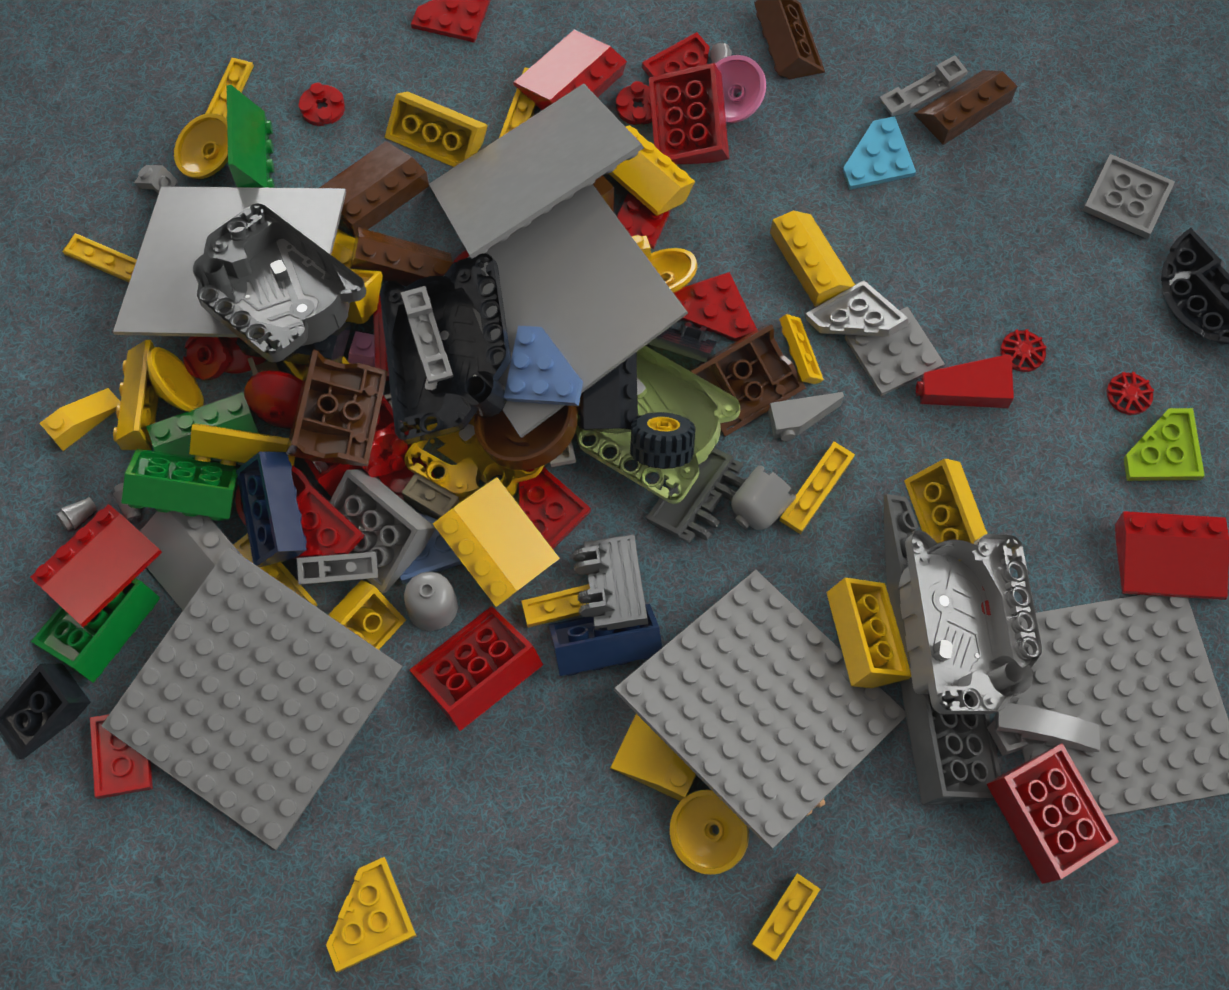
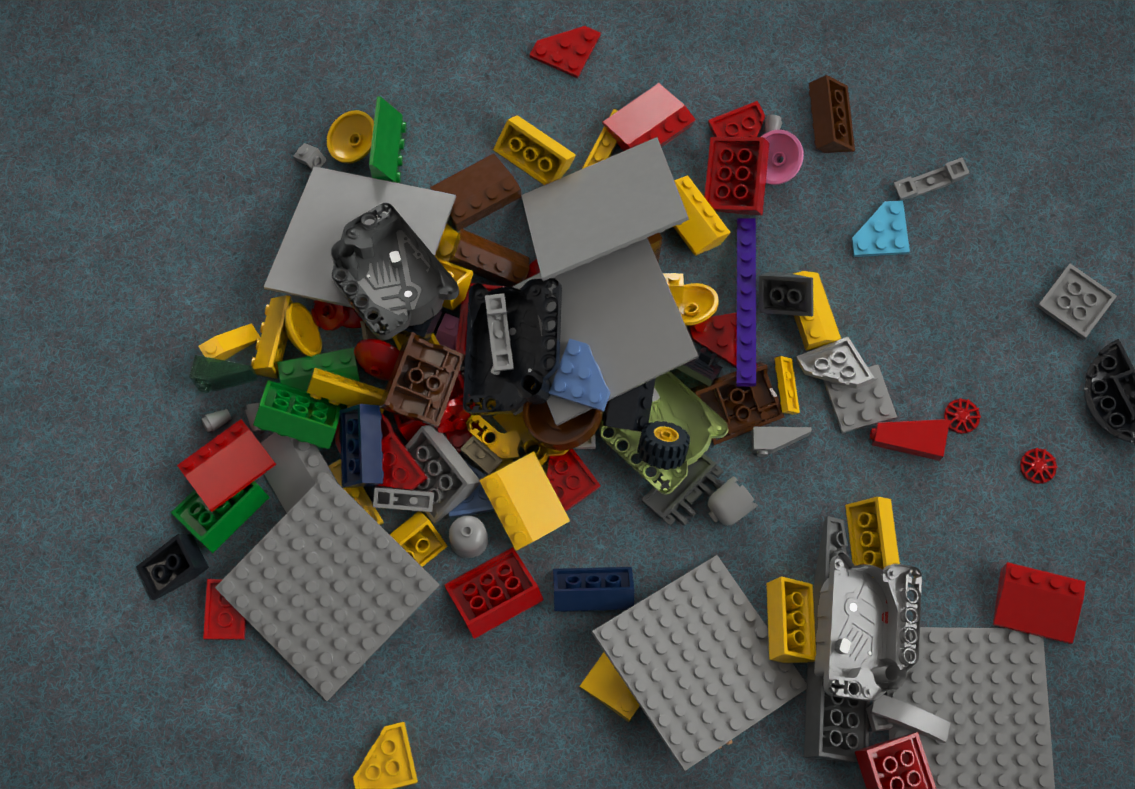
camera: 10 degrees right, 5 degrees up
(73, 453) = (219, 374): none -> clear green slope
(100, 257) = (261, 216): yellow tile -> none
(235, 75) = (377, 87): yellow tile -> none
(317, 94) = (447, 104): red plate -> none
(553, 606) = (565, 556): yellow plate -> none
(613, 583) = (606, 546): hinge -> none
(625, 104) = (688, 154): red plate -> none
(641, 220) = (679, 257): red plate -> none
(693, 834) = (632, 752): yellow dish -> none
(731, 260) = (746, 301): none -> dark purple plate
(779, 238) = (786, 294): none -> dark grey slope
(817, 487) = (776, 499): yellow plate -> none
(967, 104) = (963, 199): reddish brown slope -> none
(1167, 450) = (1055, 517): lime plate -> none

